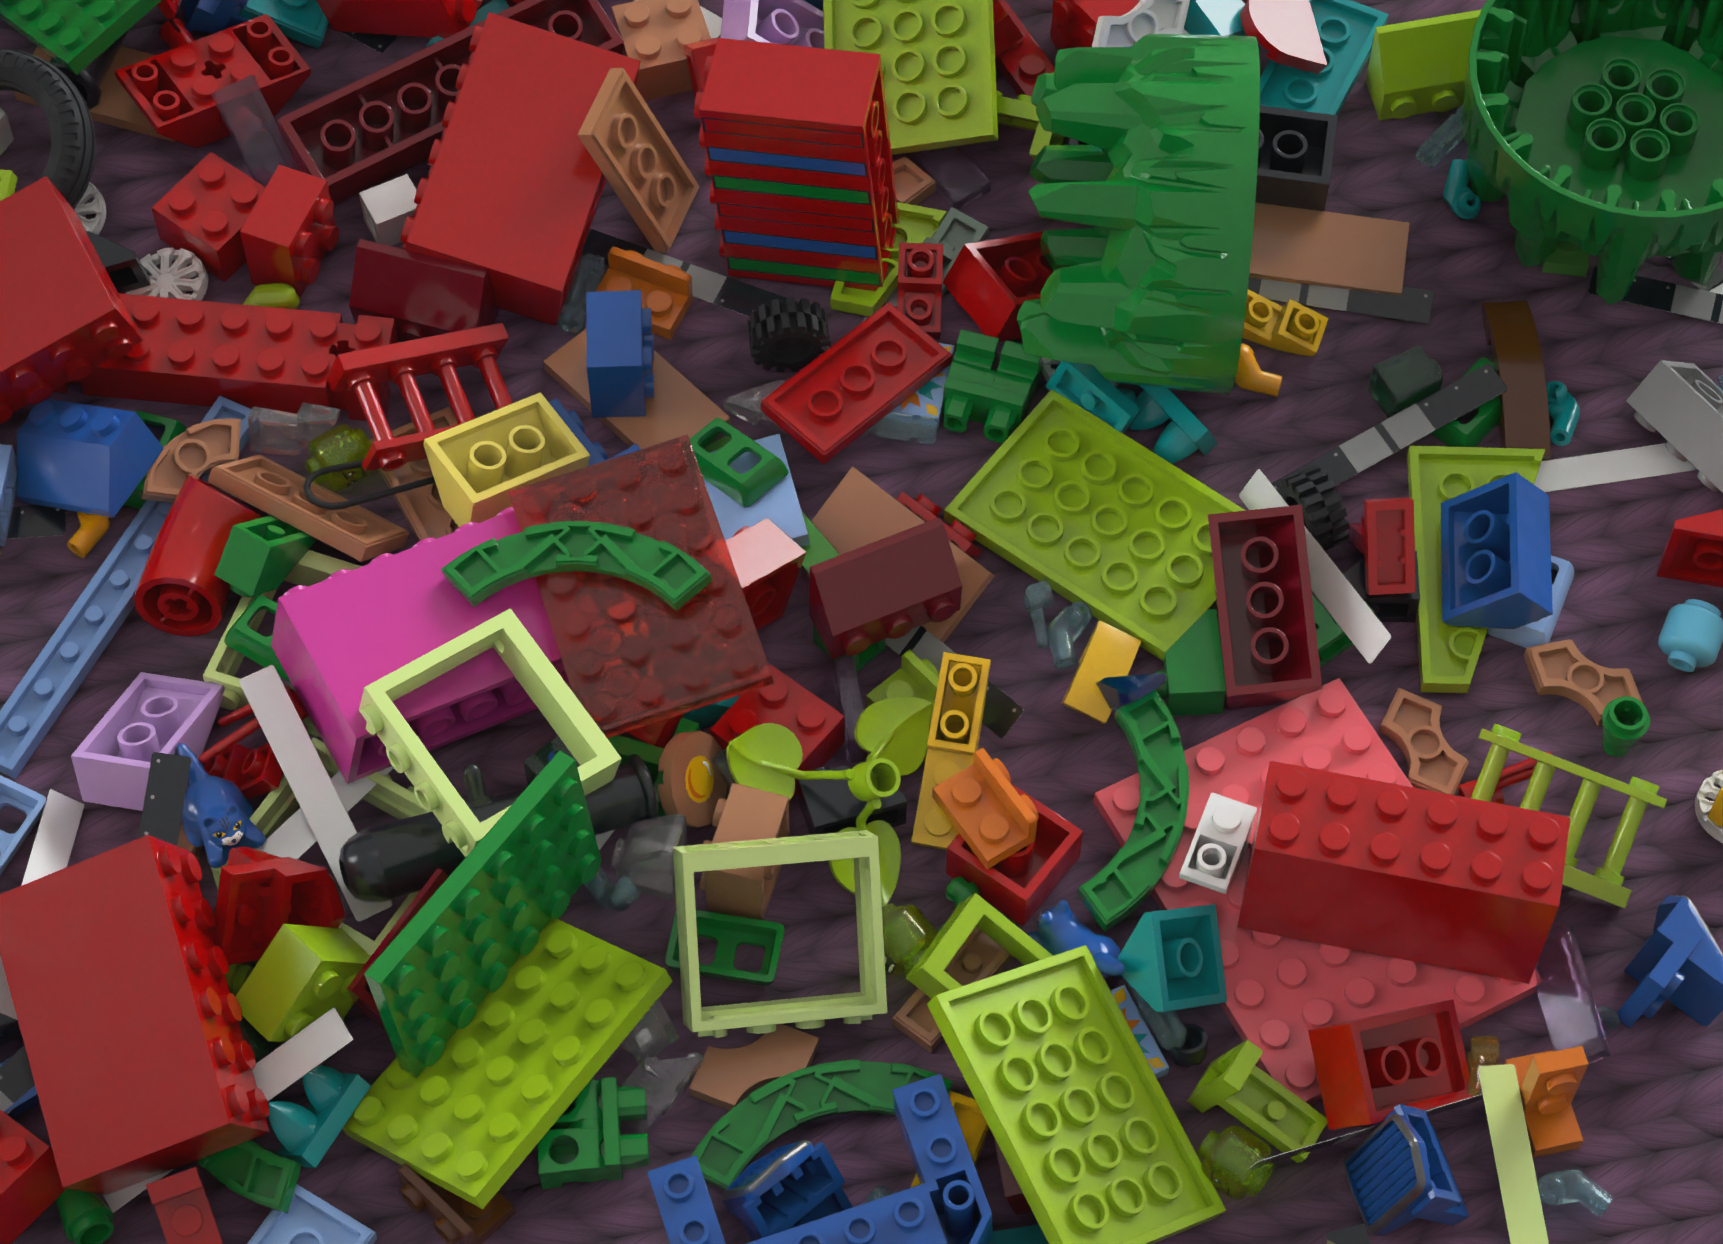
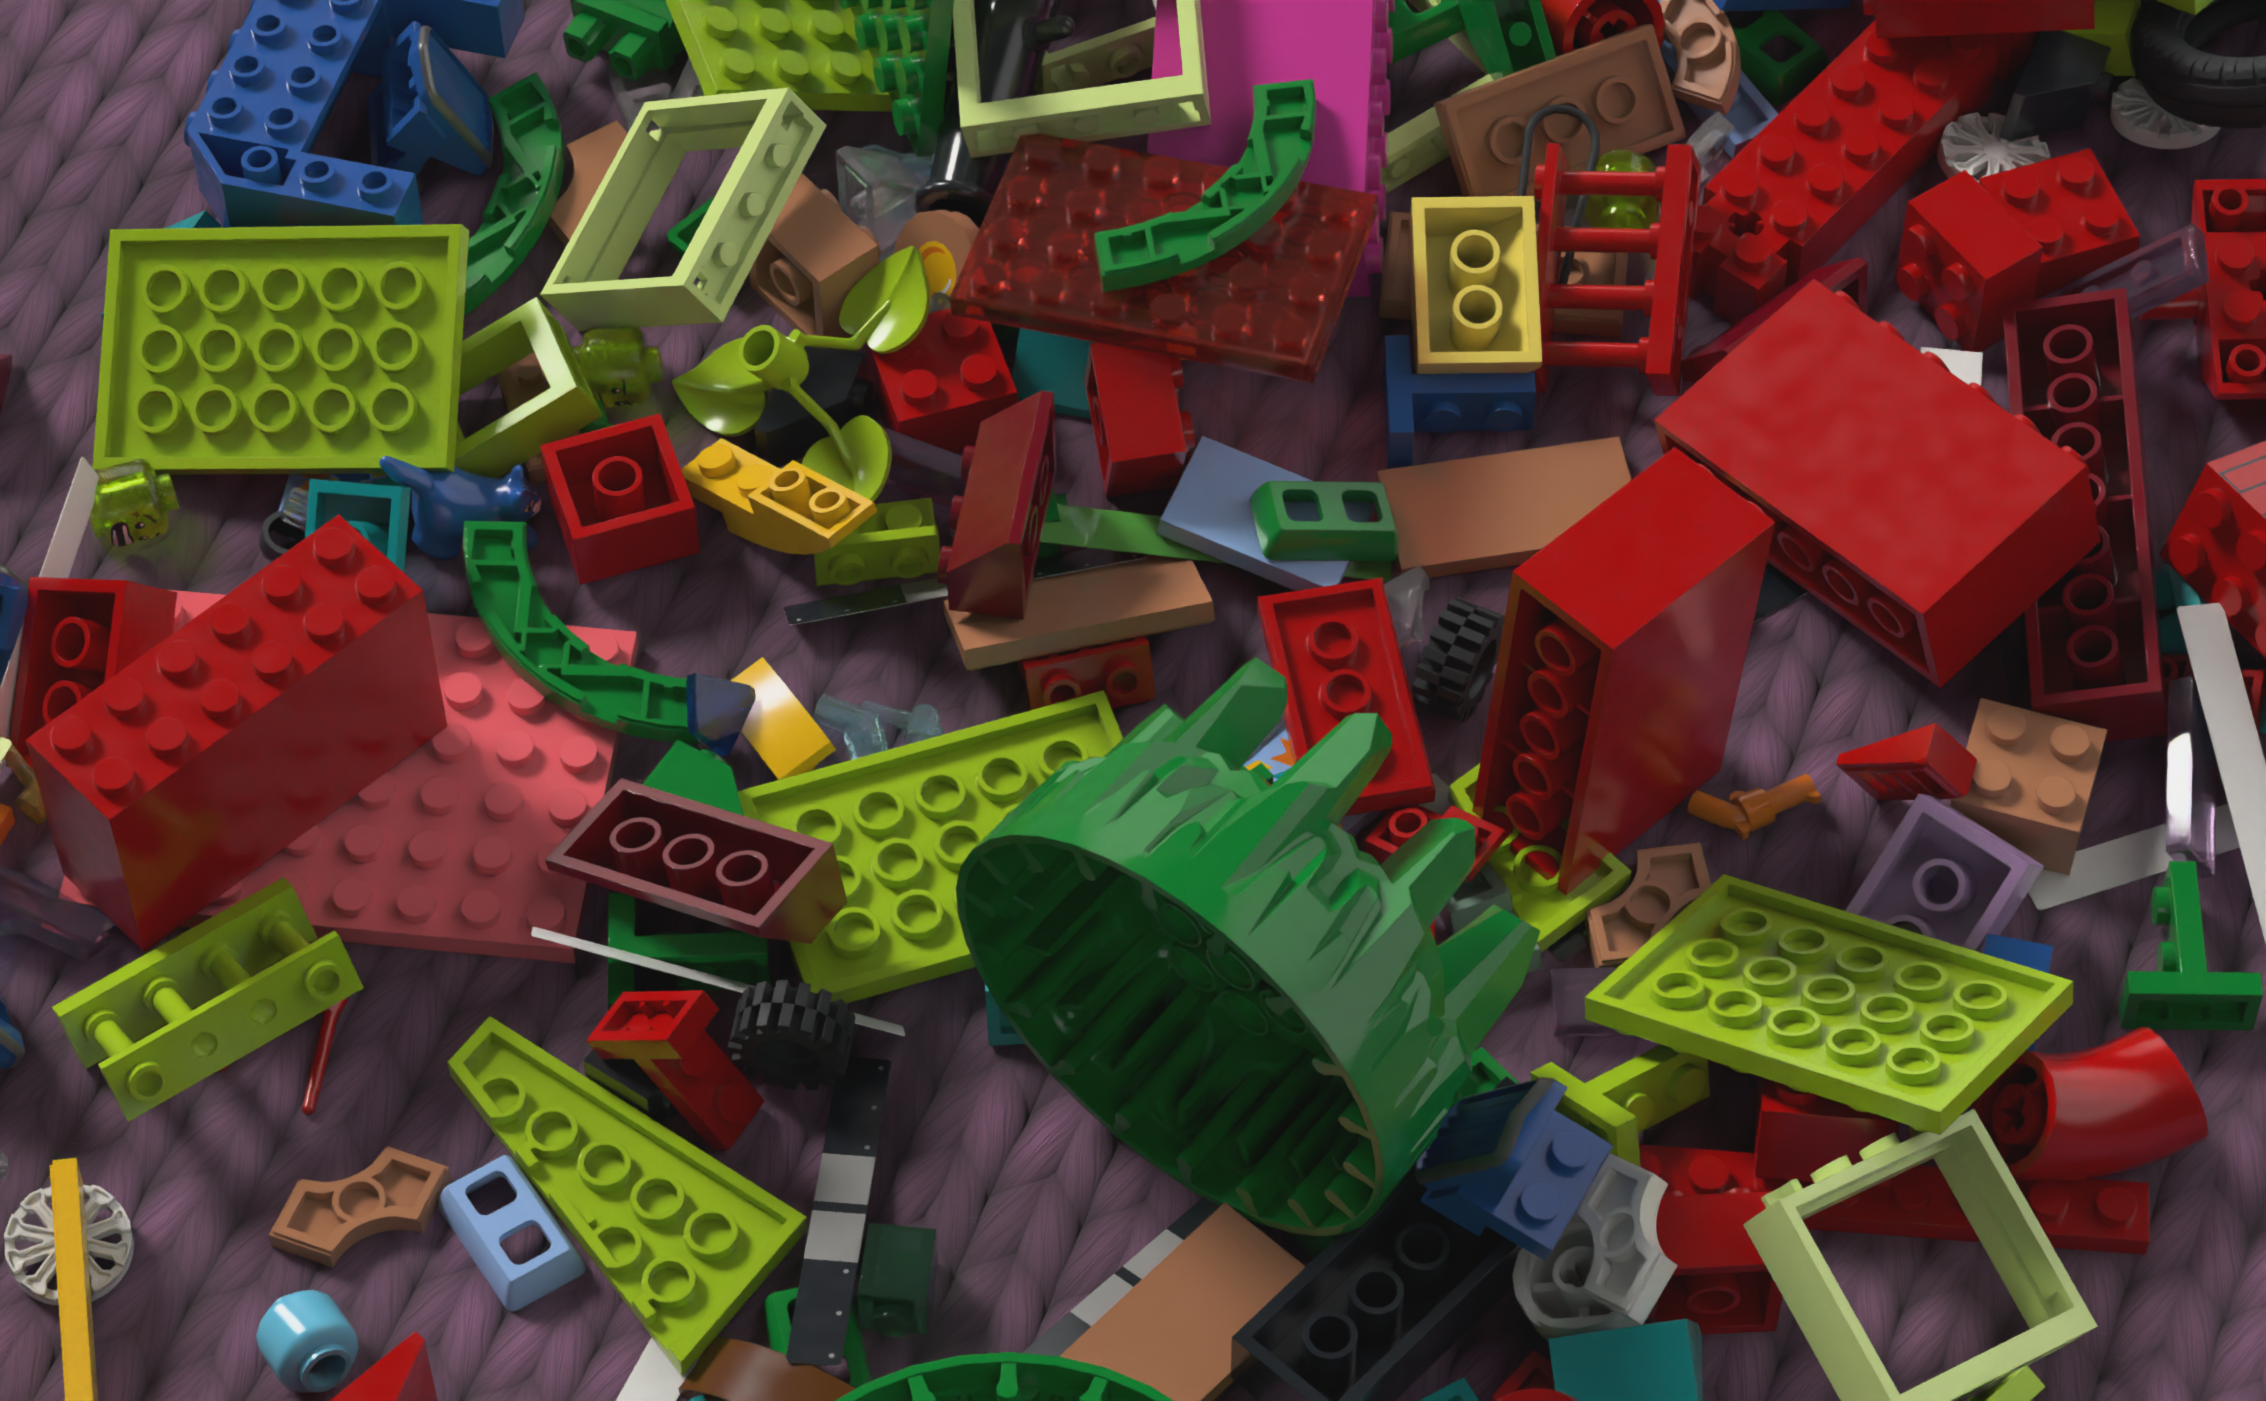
camera: 125 degrees right, 5 degrees down
(273, 295) = (1892, 209): lime arm -> none
(619, 353) = (1539, 452): blue brick -> none
(638, 160) = (1815, 584): nougat tile -> none
(988, 809) = (663, 454): orange bracket -> none
(1219, 843) = (467, 660): white slope -> none
(1252, 378) = (1051, 1129): light orange arm -> none
(1258, 1100) = (173, 538): lime bracket -> none
(1283, 328) = (1107, 1214): yellow slope -> none
(1416, 730) = (445, 992): nougat tile -> none
(1496, 555) = (564, 1174): blue slope -> none
(1623, 725) = (255, 1165): green cone -> none

